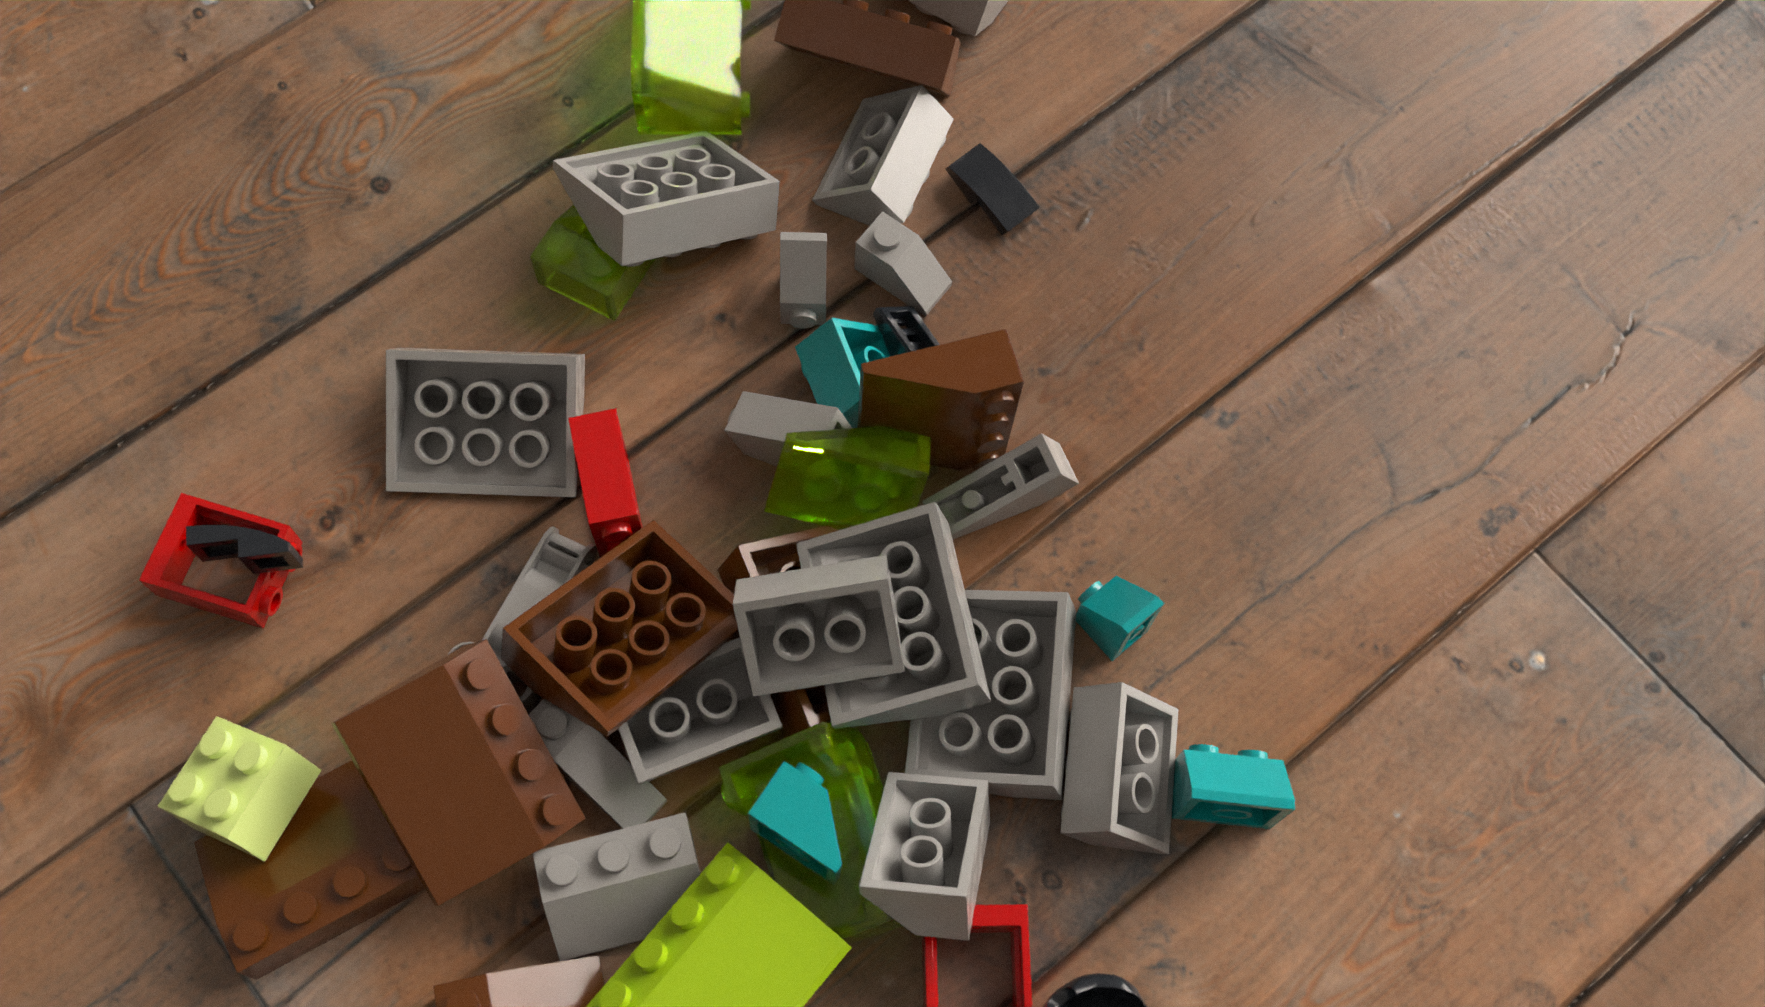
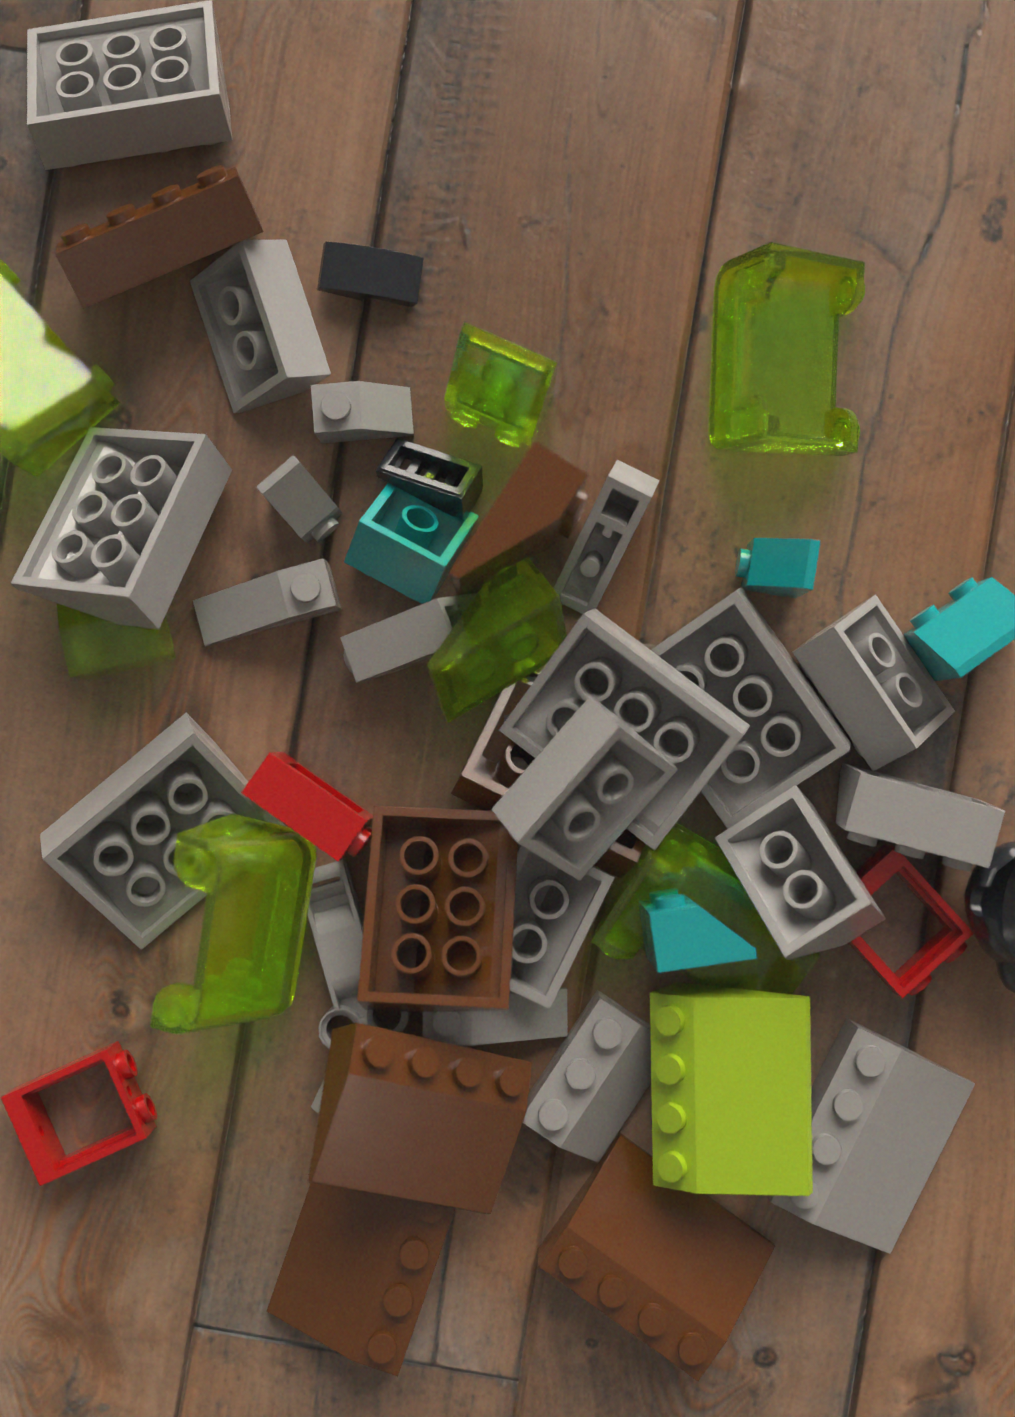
camera: 30 degrees left, 20 degrees up
(240, 788) = (269, 1259): yellowish green brick -> none
(256, 549) = (103, 1097): black slope -> none
(472, 519) = (251, 927): none -> clear neon green windscreen
(718, 334) = (268, 602): none -> light grey slope
(1024, 301) = (499, 386): none -> clear neon green slope
(1064, 891) = (917, 818): none -> light grey slope
(1253, 472) = (780, 352): none -> clear neon green windscreen

